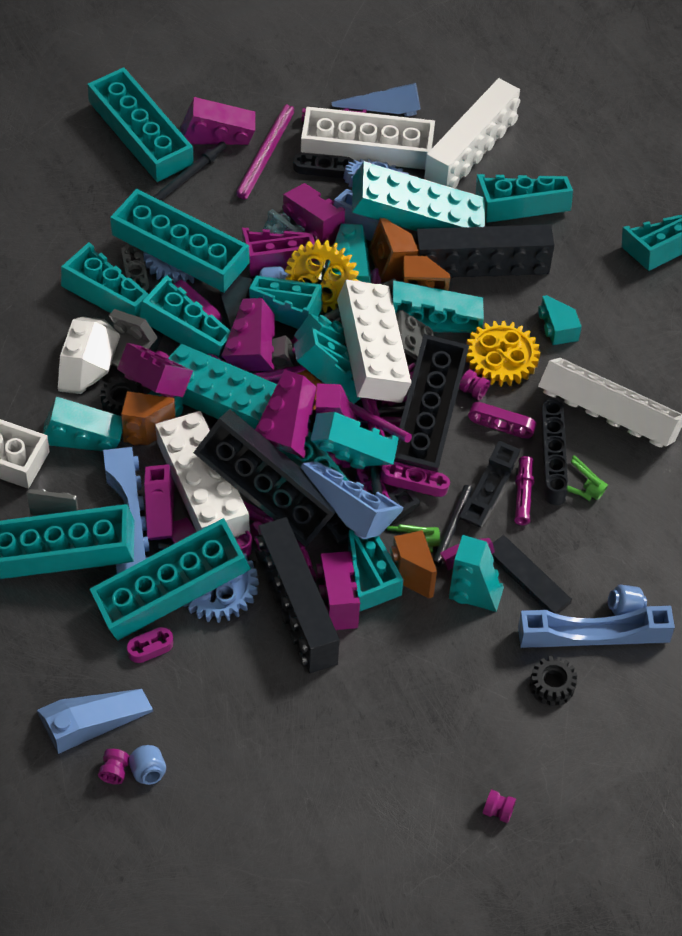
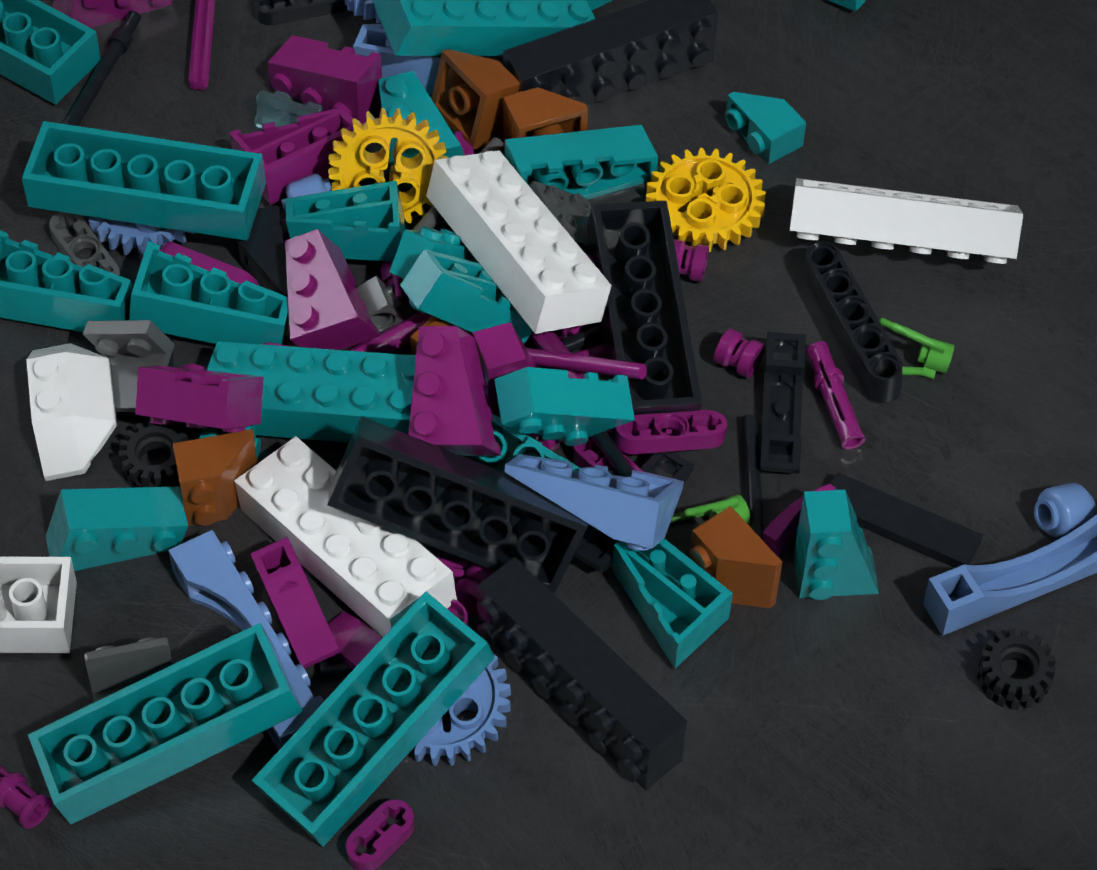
camera: 20 degrees left, 0 degrees up
(339, 589) = (624, 623): magenta wedge -> none
(478, 447) = (739, 353): none -> magenta wheel
(489, 417) = (729, 298): magenta beam -> none

